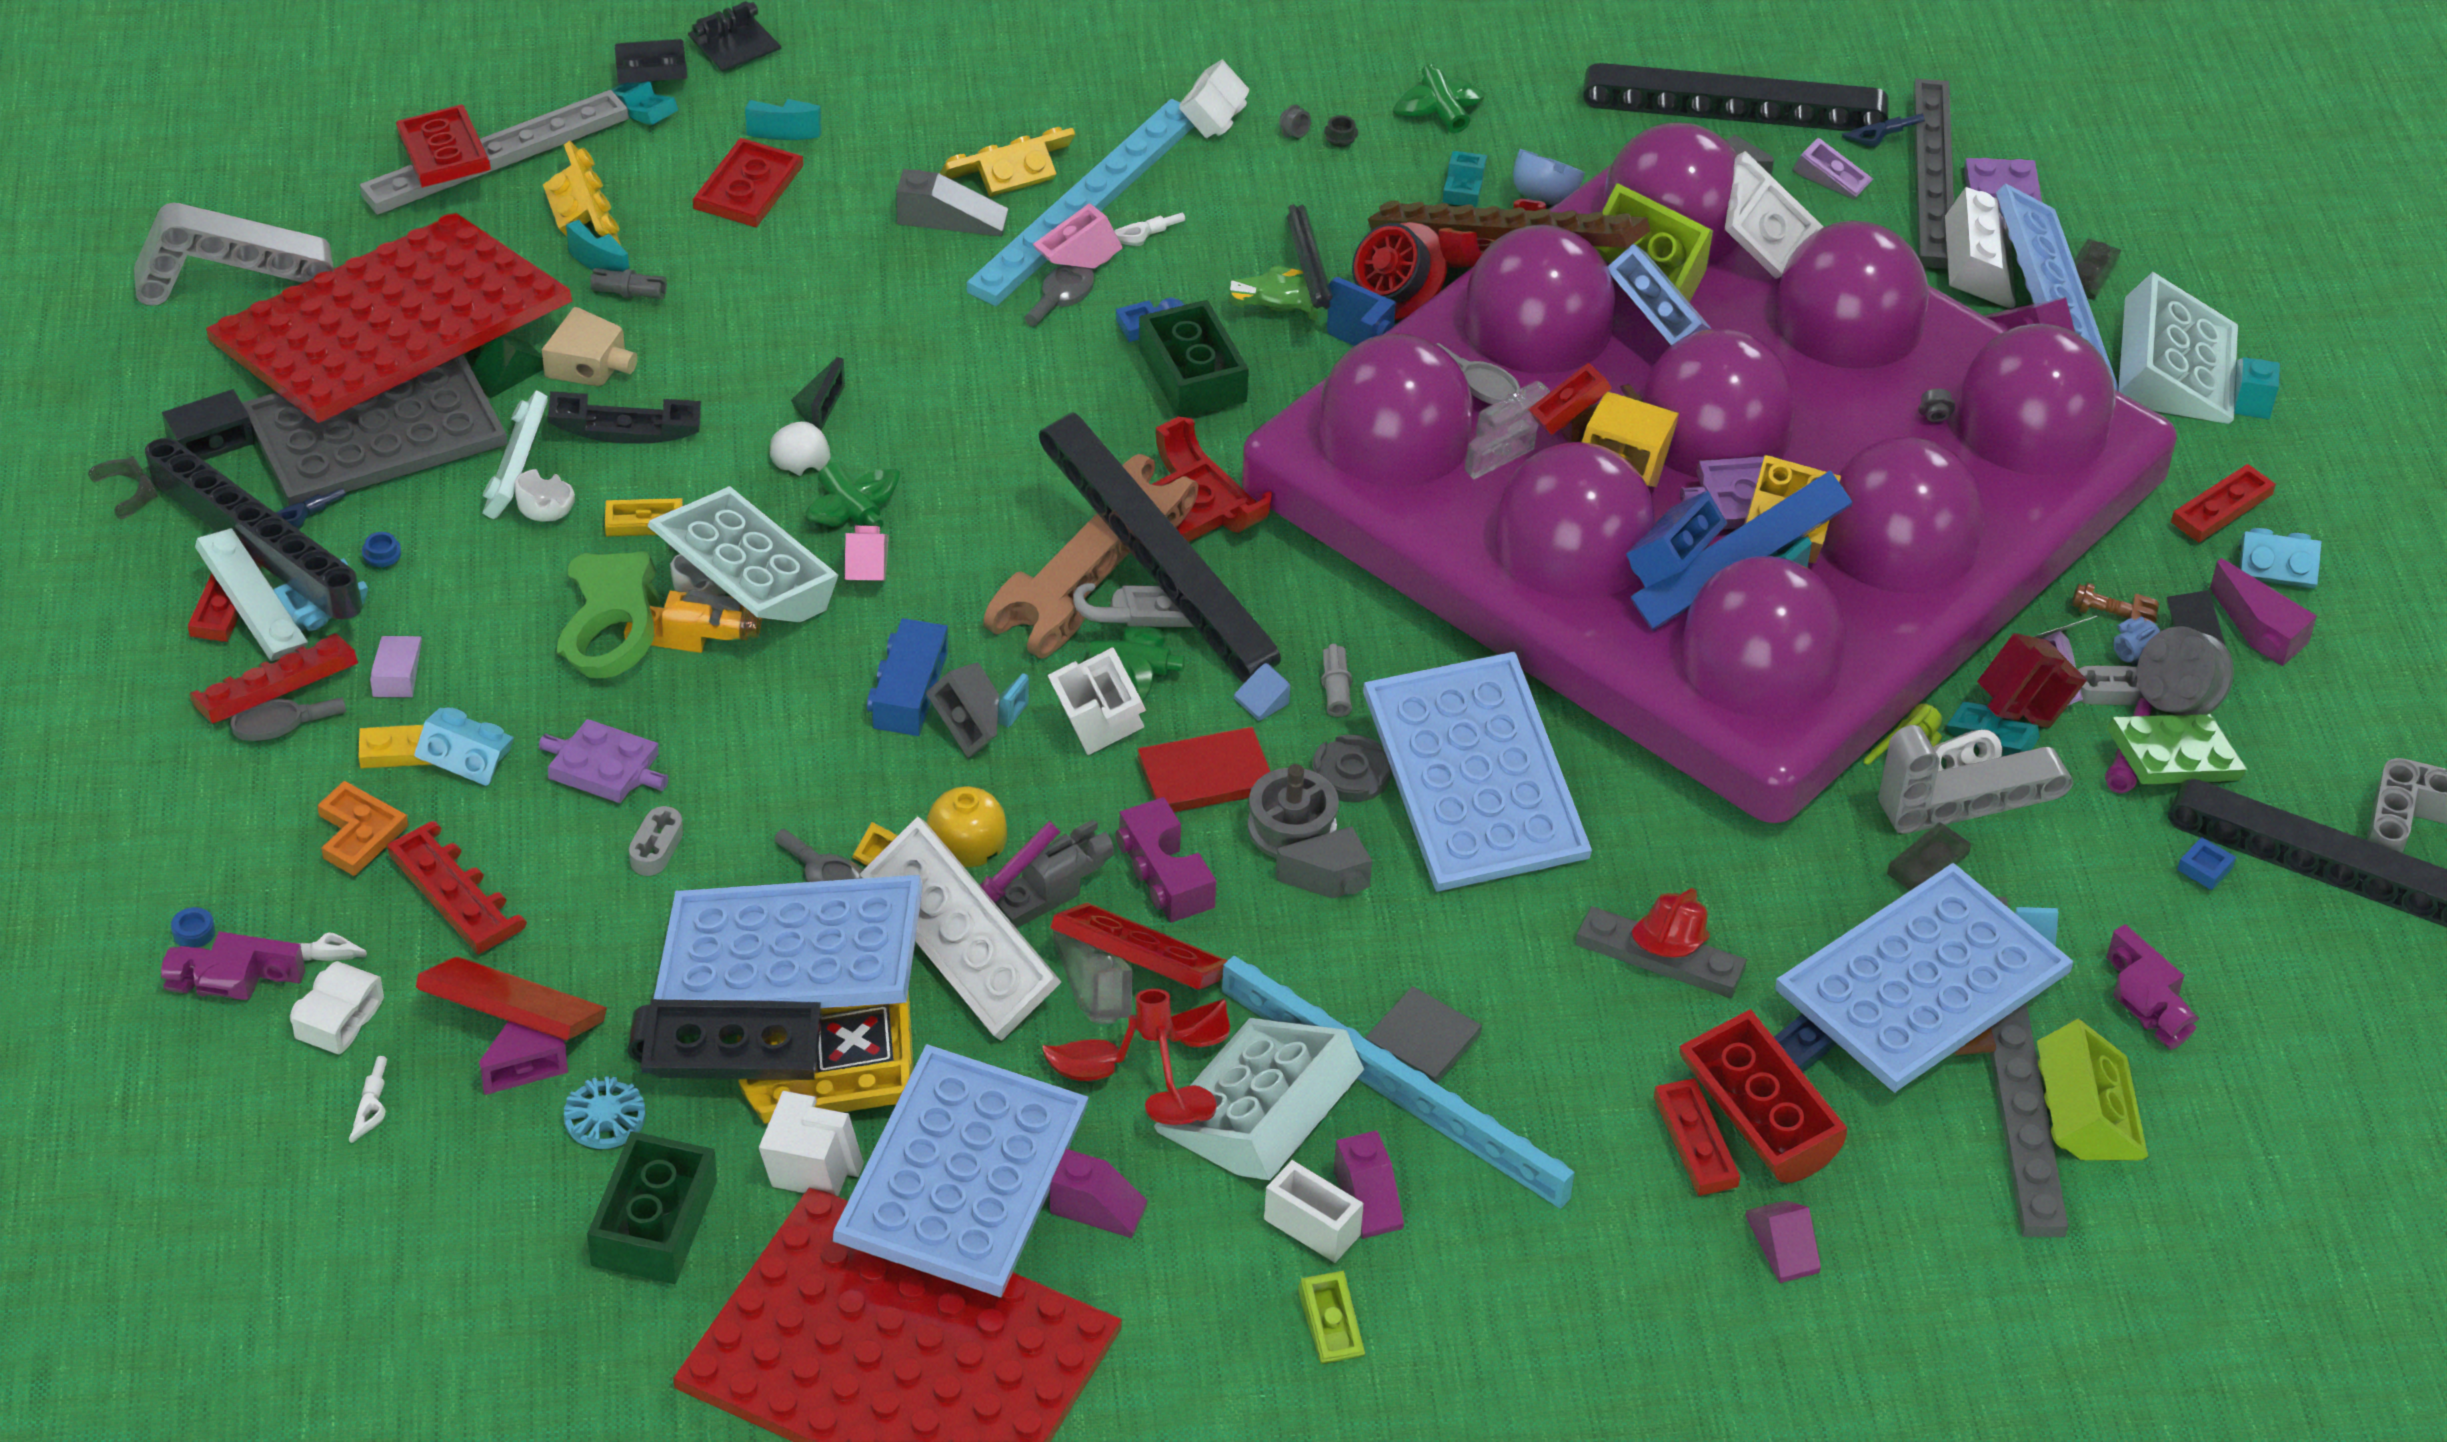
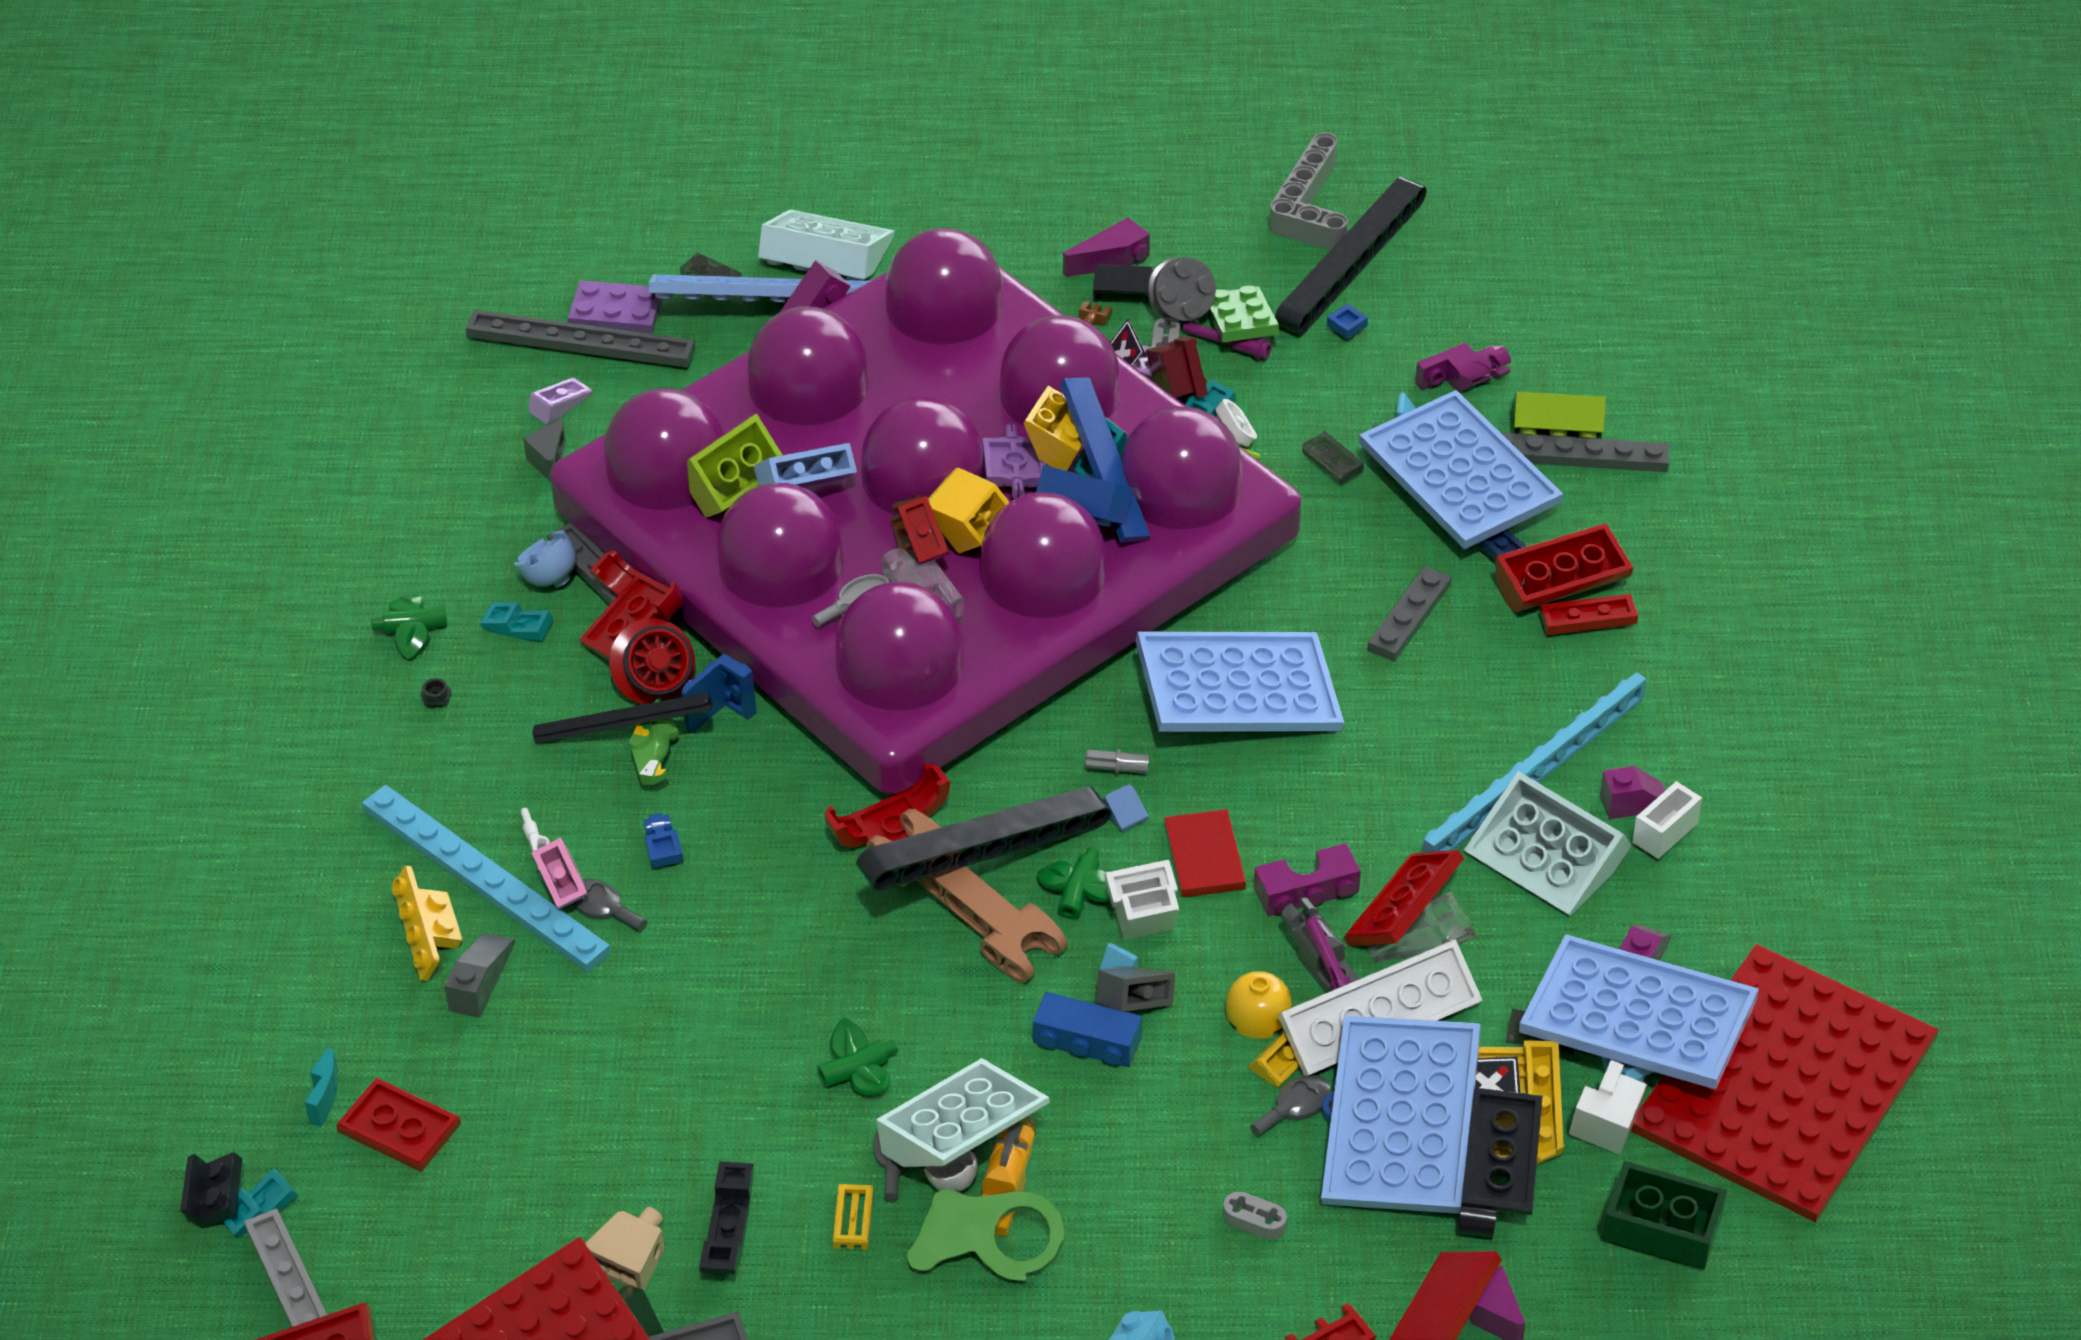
camera: 80 degrees left, 0 degrees up
(502, 487) = (765, 1306): light aqua plate -> none
(542, 498) = (828, 1282): white hair -> none
(577, 195) = (402, 1256): yellow bracket -> none
(593, 252) = (480, 1246): teal slope -> none
(603, 761) = (1158, 1250): medium lavender plate -> none
(604, 1113) = (1550, 1257): medium azure wheel -> none
(628, 283) = (535, 1217): dark grey pin -> none
(733, 36) = (178, 1125): black hinge -> none
(799, 447) = (786, 1097): white hair -> none
(821, 394) = (722, 1077): black slope -> none
(866, 554) = (936, 1050): bright pink slope -> none
(1133, 606) = (1030, 870): light grey plate -> none
(1193, 358) = (732, 810): dark green brick -> none
(1194, 1028) = (1509, 947): red plant -> none
(1215, 99) = (382, 766): white brick -> none
(1290, 808) = (1270, 796): flat silver wheel -> none
(1295, 121) = (415, 722): dark grey plate -> none
(1326, 864) = (1318, 782): dark grey slope -> none
(1331, 1317) = (1745, 830): lime slope -> none
(1353, 767) = (1208, 766): dark grey tile -> none
(1425, 1034) = (1486, 751): dark grey tile -> none
(1494, 222) = (657, 566): reddish brown plate -> none
(1673, 925) = (1399, 596): red piece -> none
(1733, 97) = (457, 440): black beam -> none
(1765, 216) = (721, 392): white wing -> none
(1786, 1239) = (1673, 582): magenta slope -> none
(1881, 129) = (520, 358): dark blue hand -> none
(1921, 796) = (1276, 425): light grey beam -> none
(1936, 405) = (930, 345): dark grey plate -> none
(1980, 248) = (692, 320): white slope -> none
(2133, 638) = (1134, 310): medium blue gear -> none
(2223, 503) = (1003, 254): red plate -> none
(2256, 387) = (866, 206): teal slope -> none
(2280, 558) = (1051, 231): medium azure bracket -> none

